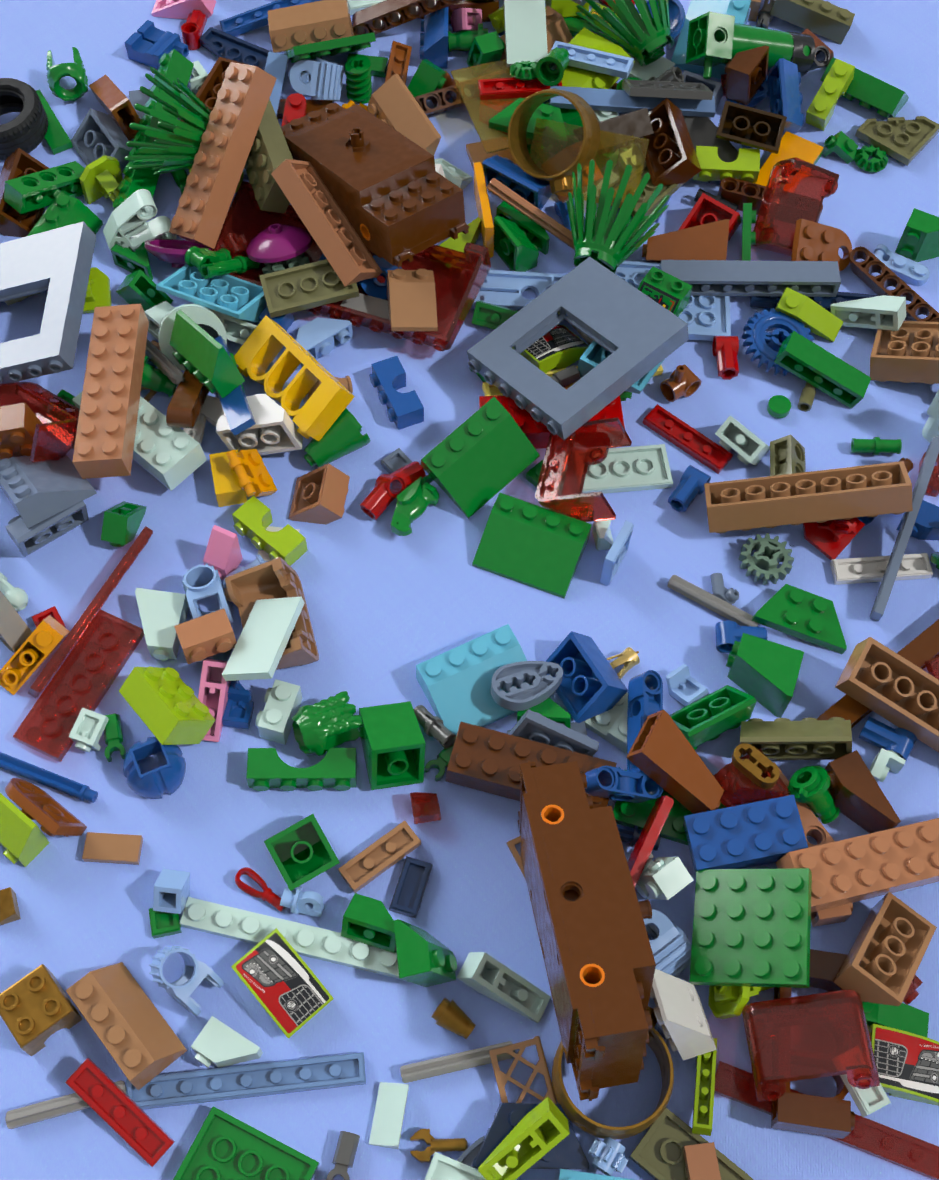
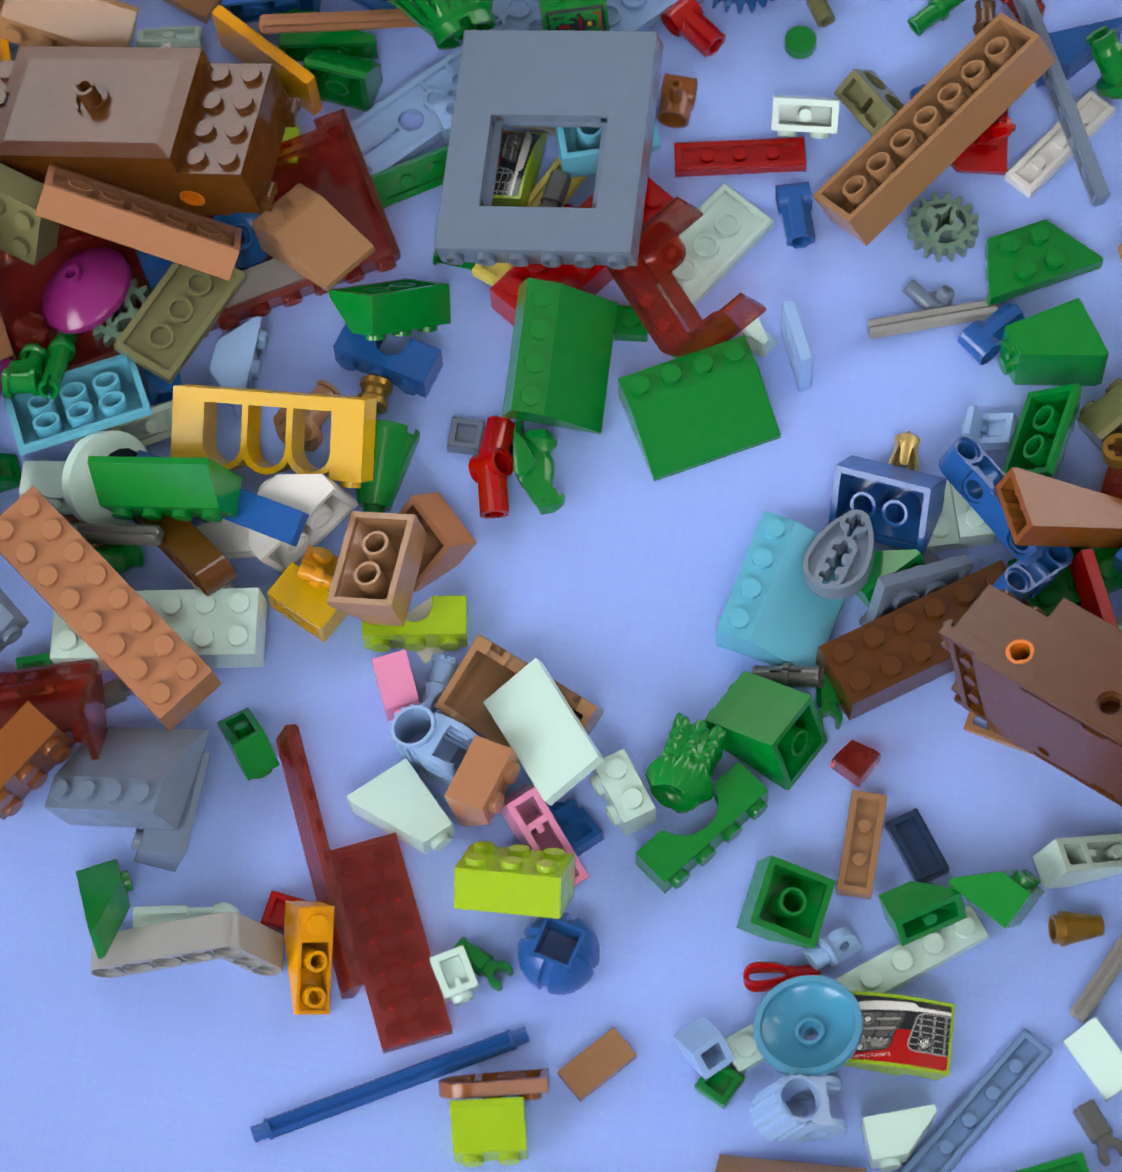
camera: 35 degrees left, 5 degrees up
(230, 918) = (804, 1008): none -> dark azure dish
(270, 483) = (378, 567): none -> medium nougat slope
(370, 405) = (376, 387): none -> pearl gold wheel
(419, 367) = (393, 307): none -> green slope

